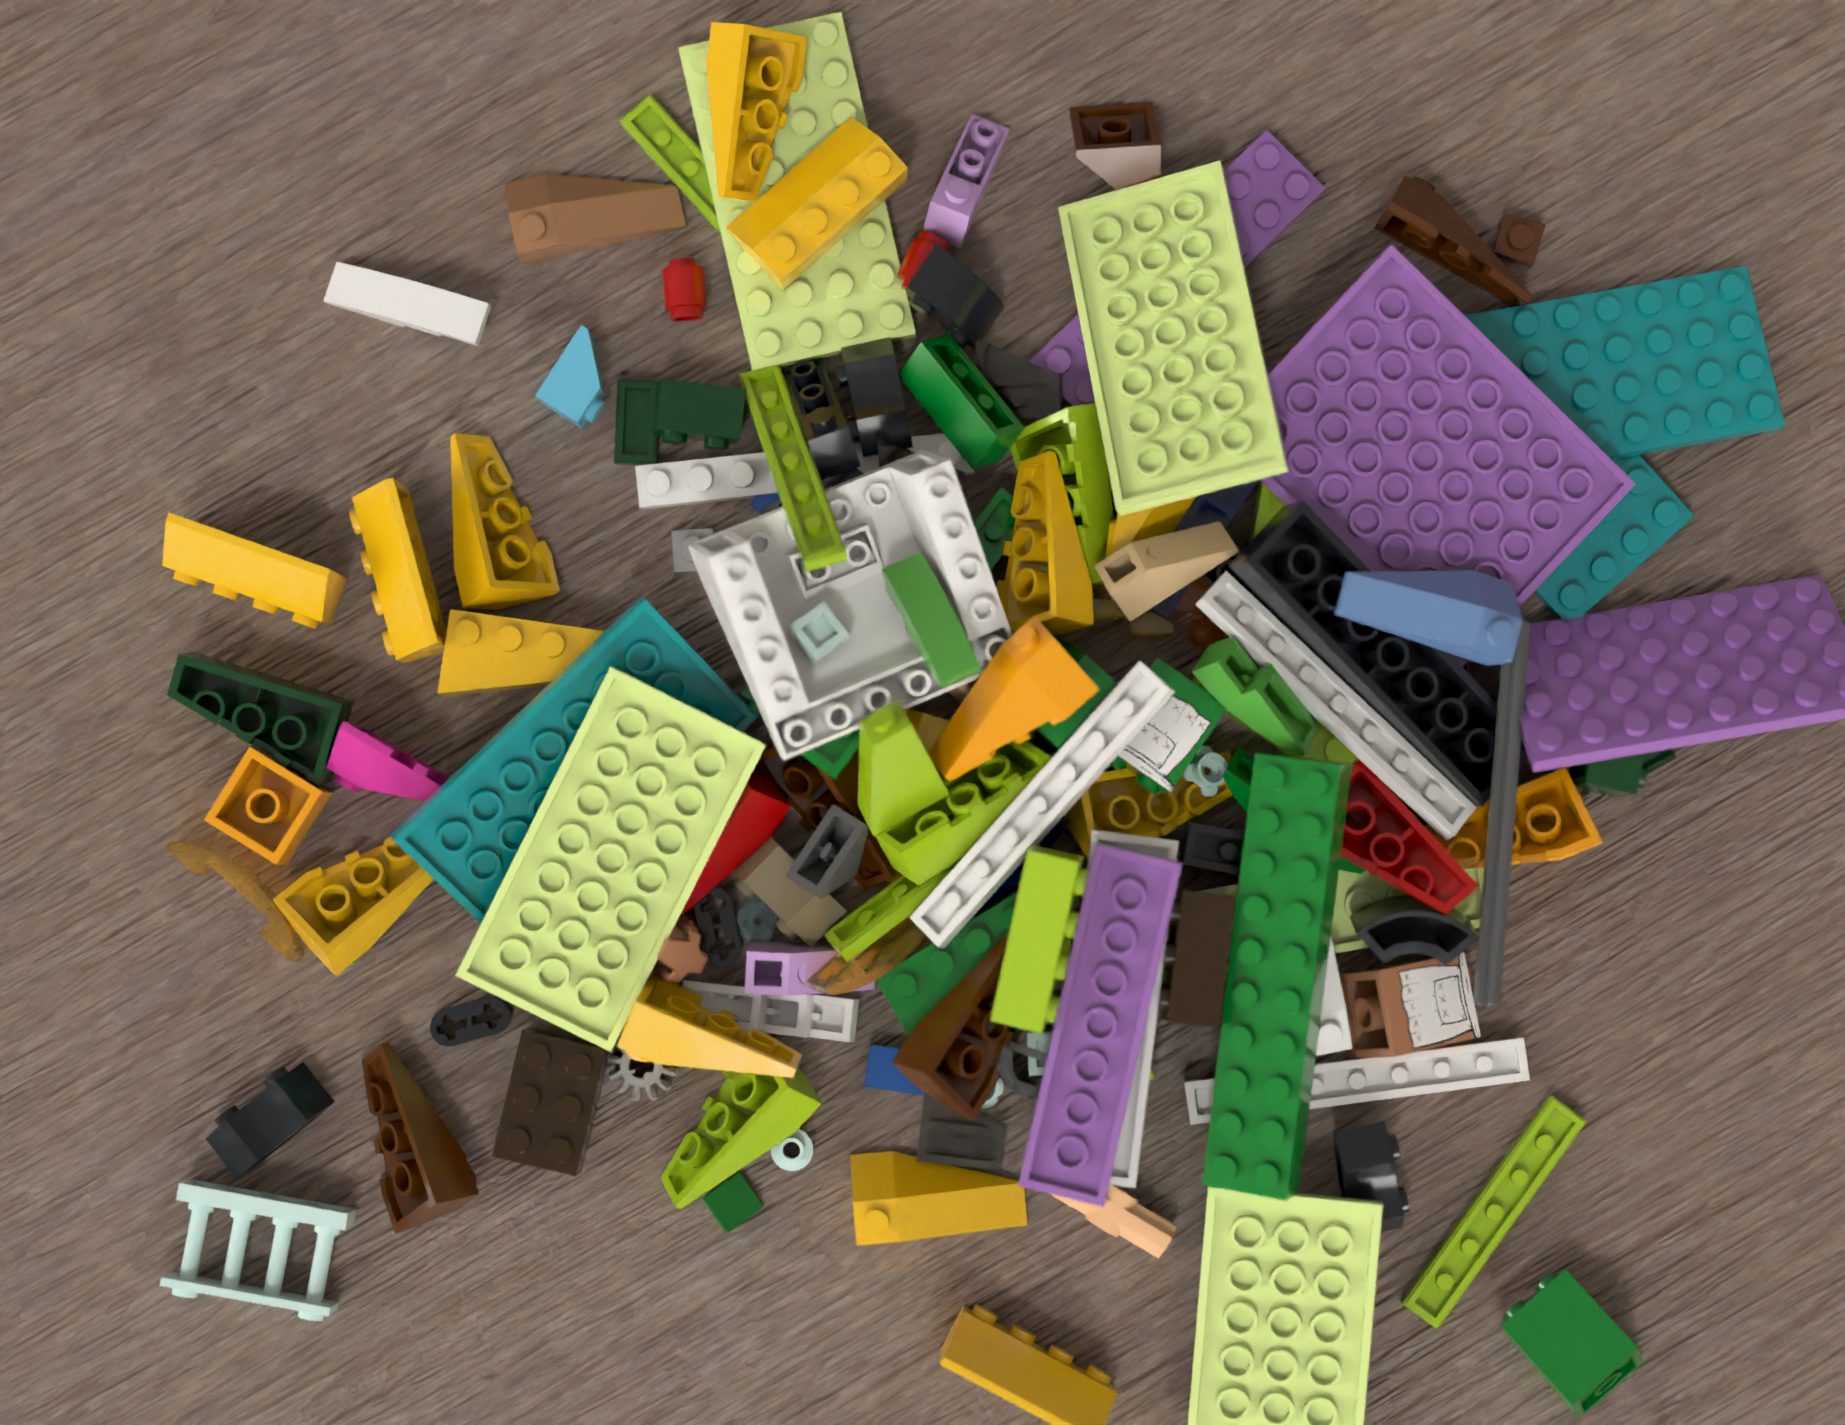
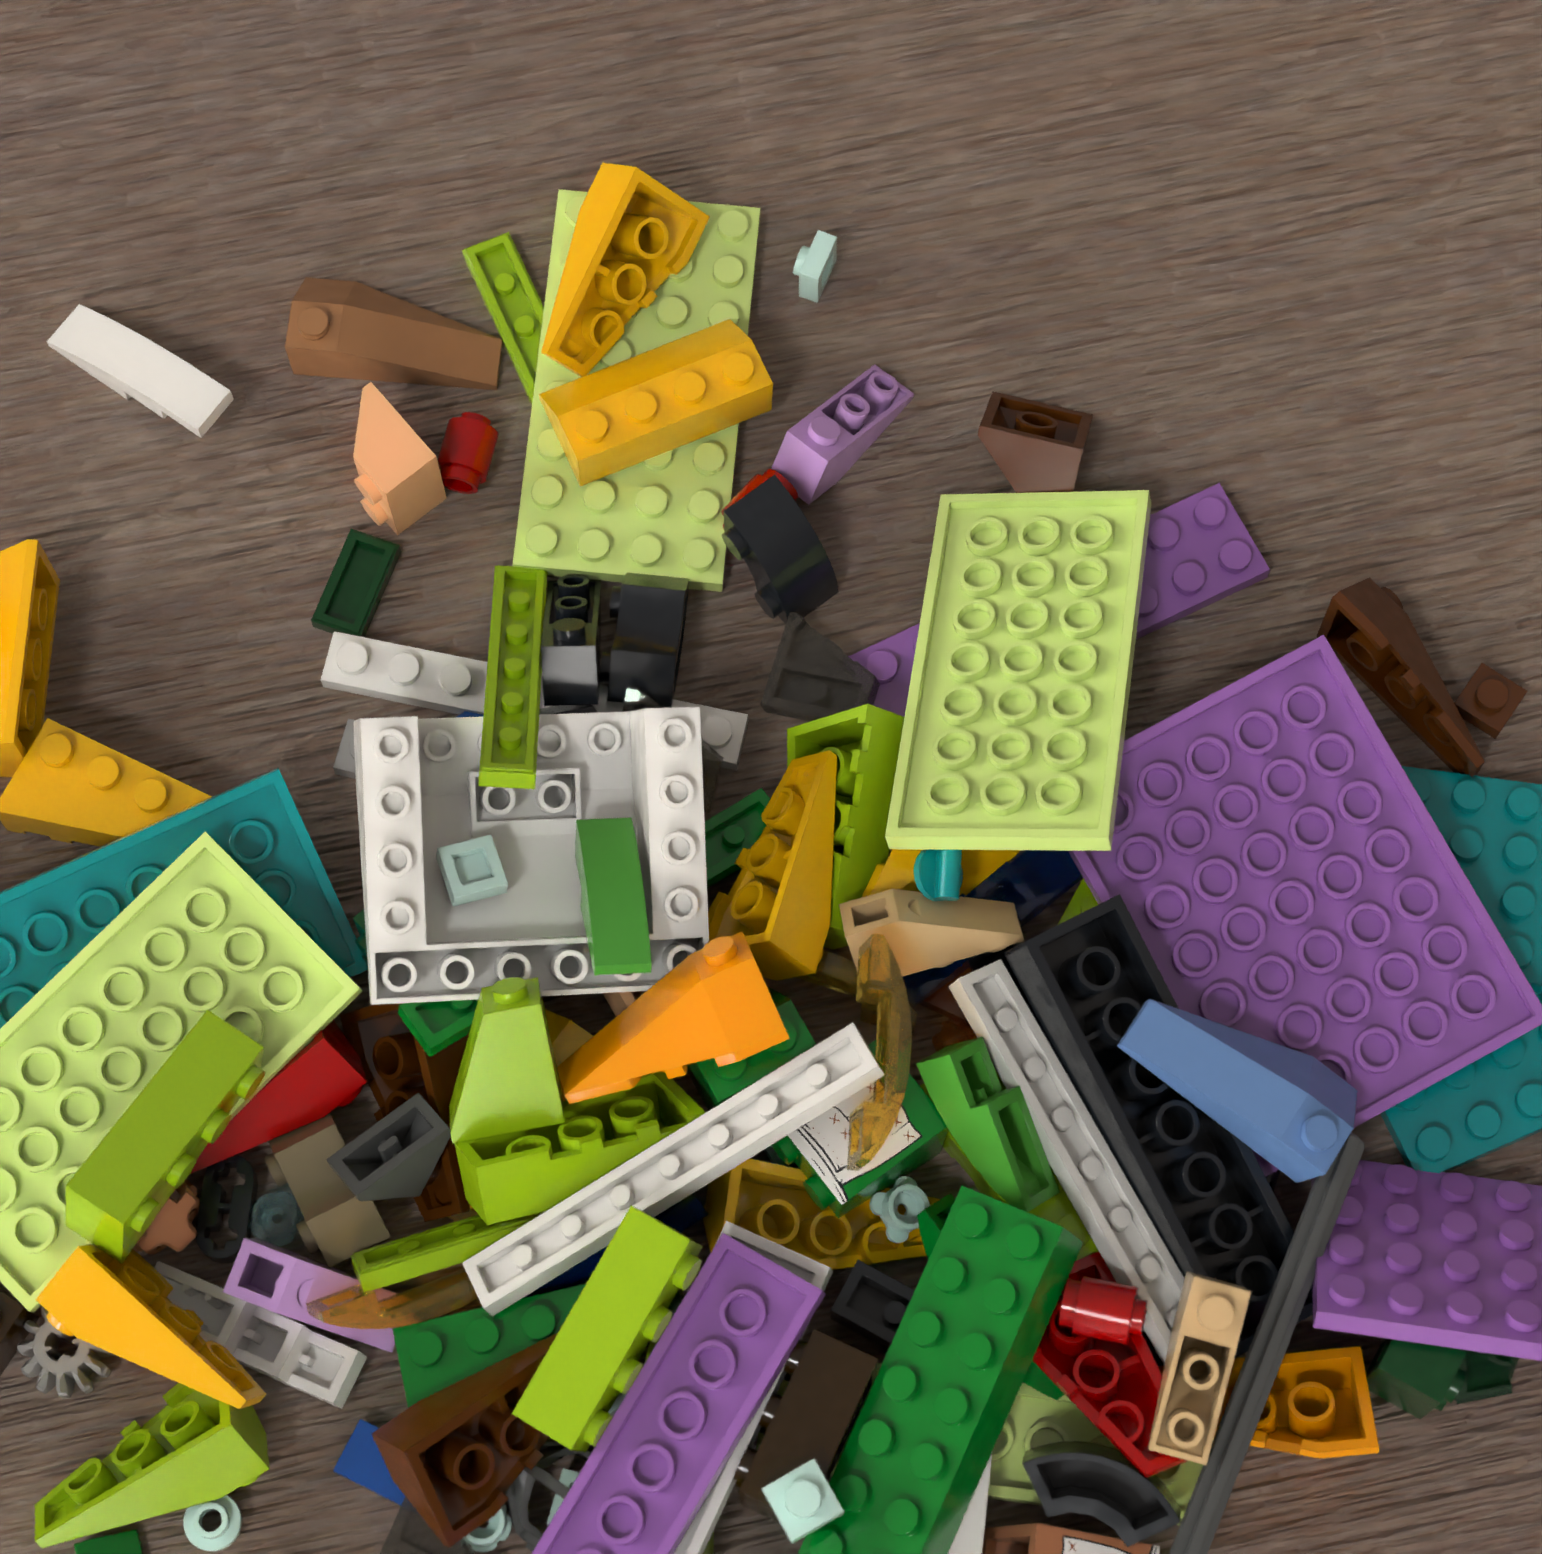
camera: 15 degrees right, 15 degrees down
(493, 543) = (133, 667): yellow wedge -> none
(575, 382) = (299, 514): medium azure slope -> none
(635, 322) = (393, 465): none -> light nougat slope
(667, 900) = (162, 1135): none -> lime wedge
(698, 413) = (429, 592): dark green brick -> none
(900, 48) = (815, 265): none -> light aqua plate
(961, 401) = (746, 671): green brick -> none
(1148, 619) = (882, 985): none -> clear yellow slope
(1162, 523) = (939, 874): none -> teal plate
(1215, 1015) = (802, 1501): none -> light aqua plate
(1380, 806) = (1102, 1309): none -> red brick
(1460, 824) = (1198, 1366): none -> tan slope

